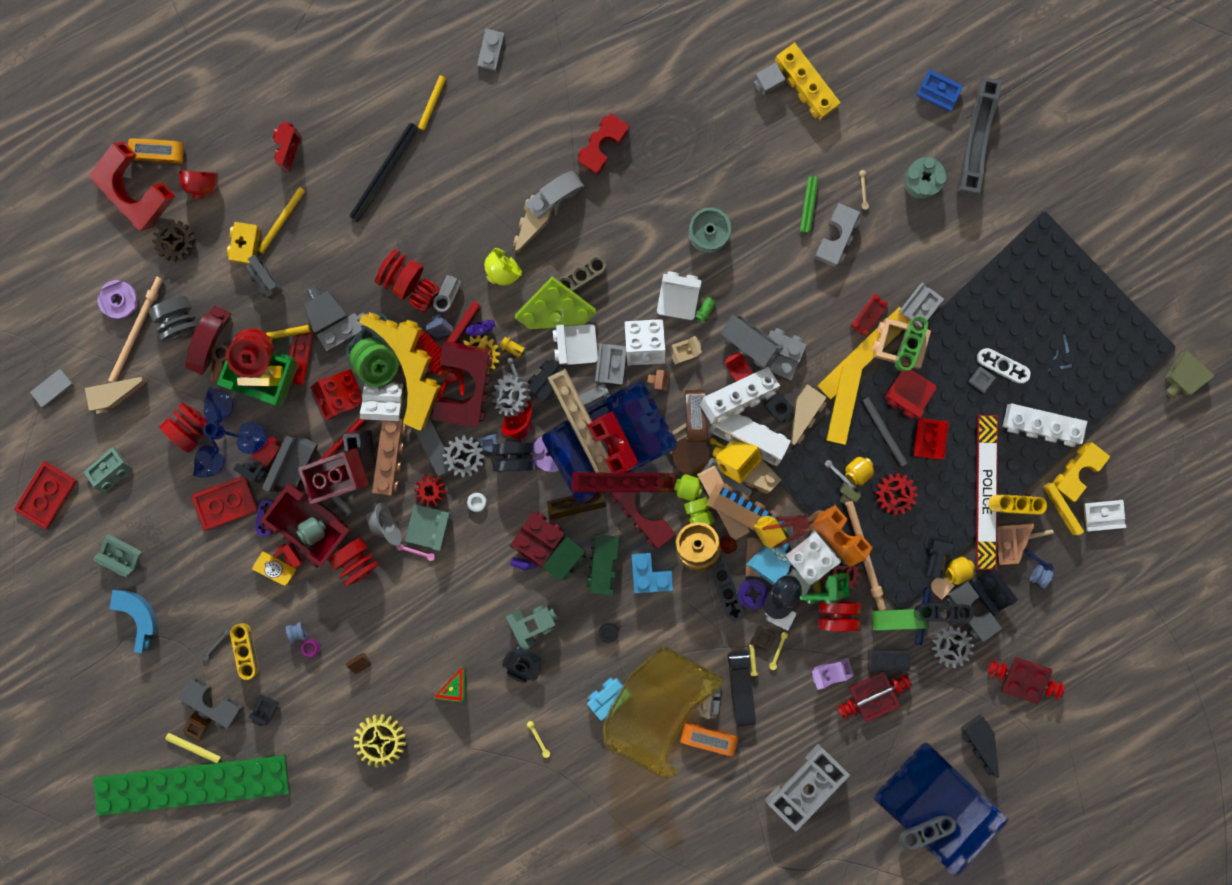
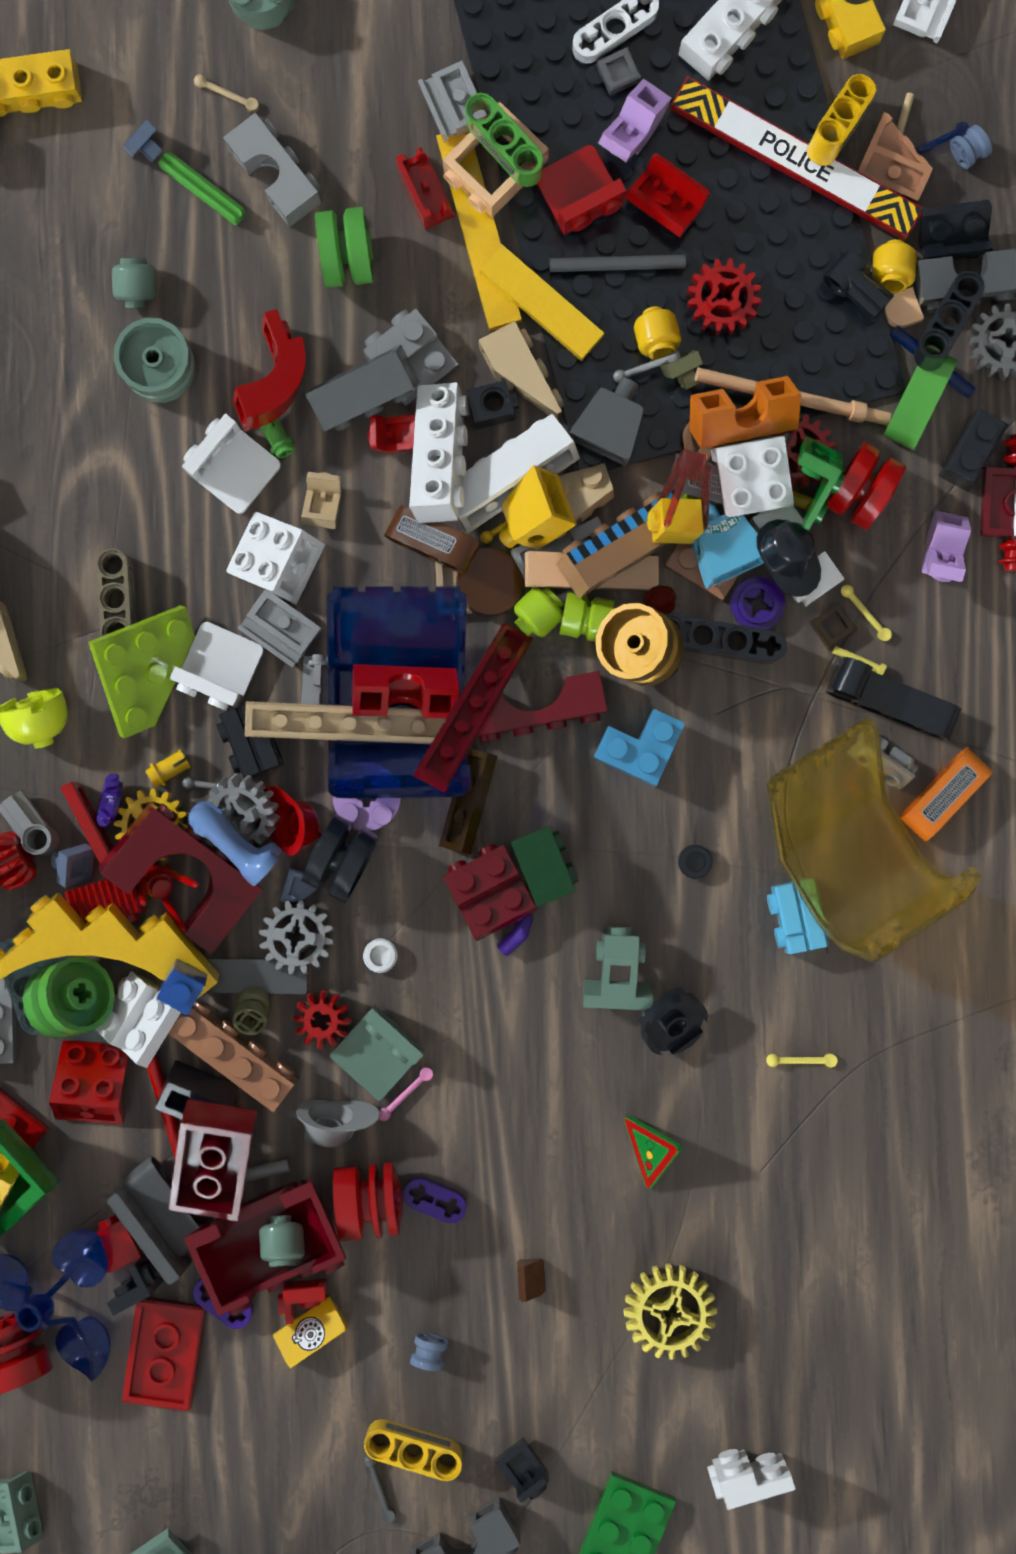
camera: 65 degrees left, 0 degrees up
(310, 648) = (465, 1342): magenta plate -> none
(316, 819) = (746, 1481): none -> white plate
(367, 595) = (431, 1207): none -> dark purple beam
(409, 415) = (182, 987): none -> blue brick
(415, 454) = (251, 1011): none -> olive wheel
(488, 416) = (251, 861): none -> medium blue piece
(603, 564) = (585, 810): dark green wedge -> none
(660, 380) = (347, 566): nougat tile -> none
(719, 296) = (271, 397): none -> red arch
(743, 197) = (134, 282): none -> sand green head
(802, 472) = (610, 422): none -> dark grey torso
(815, 162) = (141, 141): none -> sand blue tile
(817, 294) = (344, 247): none -> bright green wheel
(958, 402) = (636, 121): none -> lavender brick
(1063, 509) = (885, 57): yellow tile -> none

